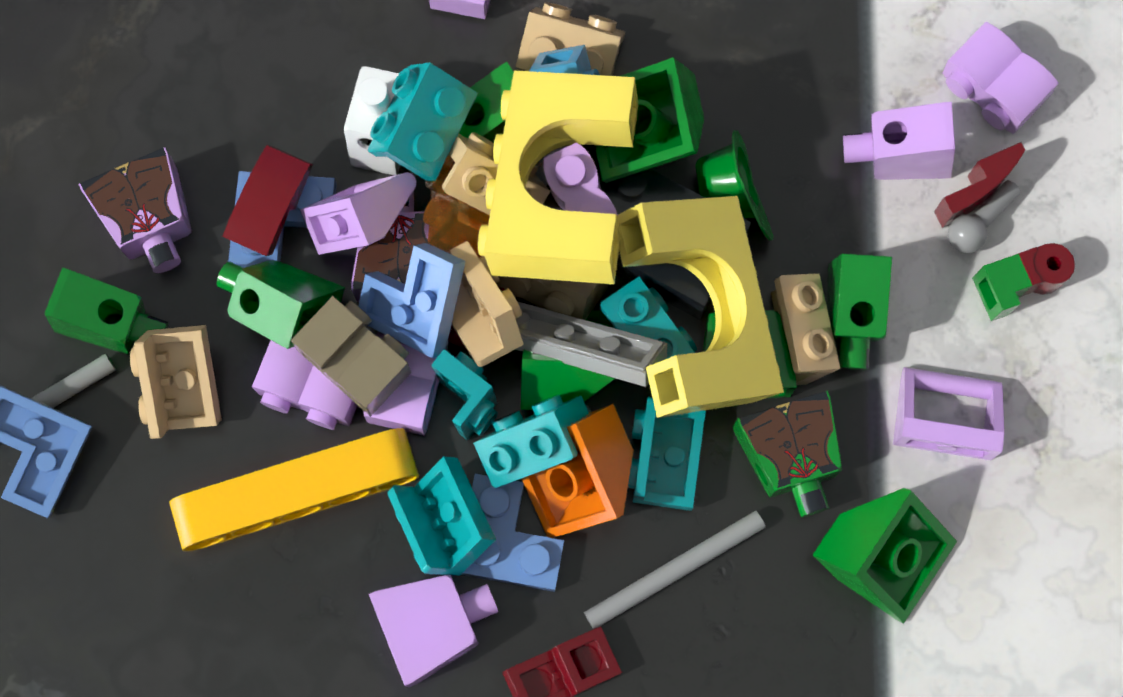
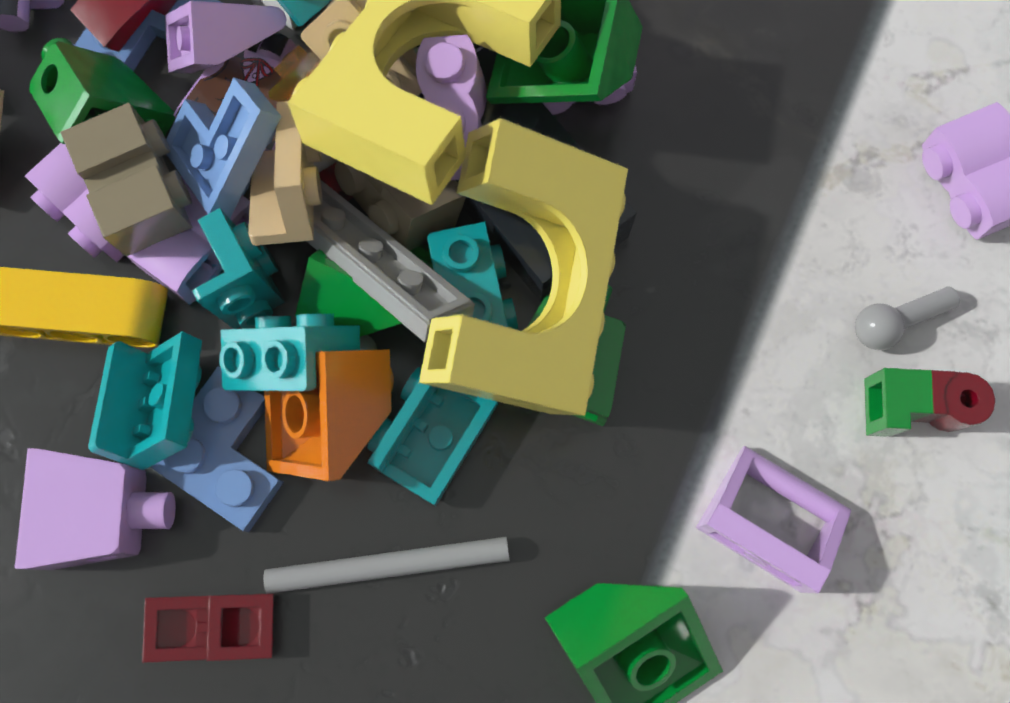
camera: 25 degrees right, 0 degrees up
(729, 174) = (645, 153): green piece -> none
(793, 449) = (578, 486): torso -> none
(806, 326) = (649, 353): tan bracket -> none
(864, 285) = (732, 331): green torso -> none
(906, 143) = (853, 197): lavender torso -> none
(985, 180) = (922, 275): dark red slope -> none

